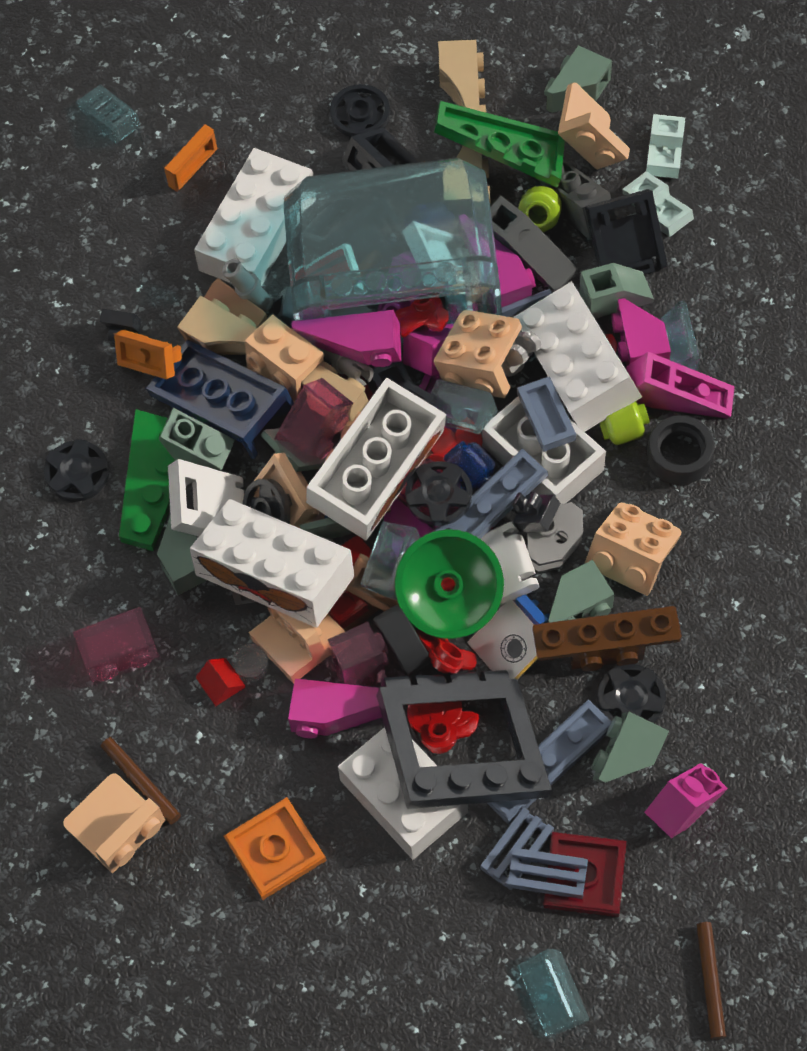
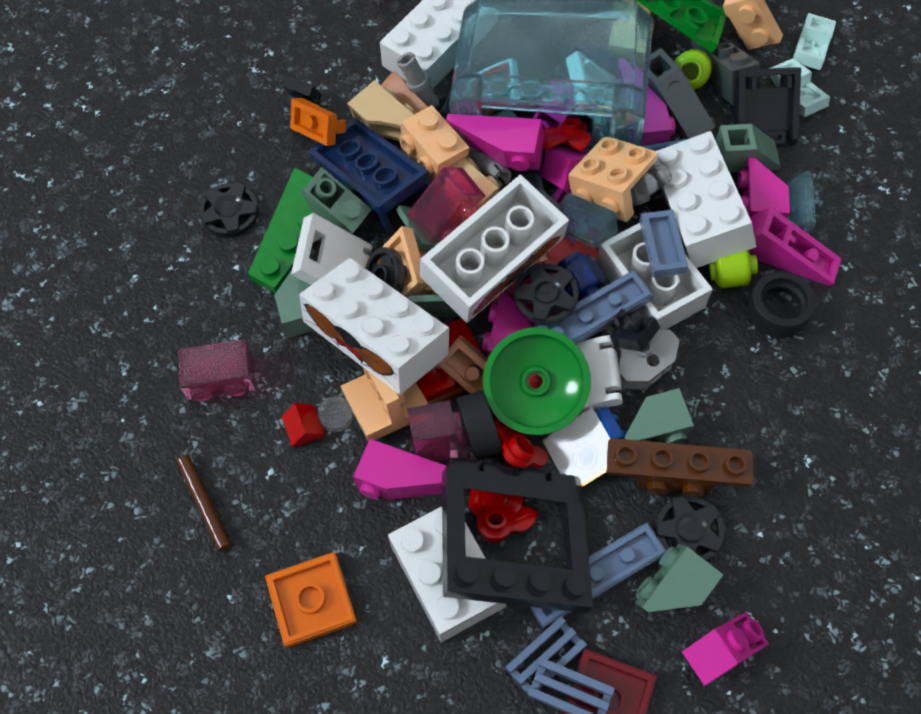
camera: 10 degrees right, 0 degrees up
(114, 822) = (165, 538): light nougat bracket -> none
(386, 554) = (481, 342): clear light blue slope -> none
(632, 547) = (719, 385): light nougat bracket -> none

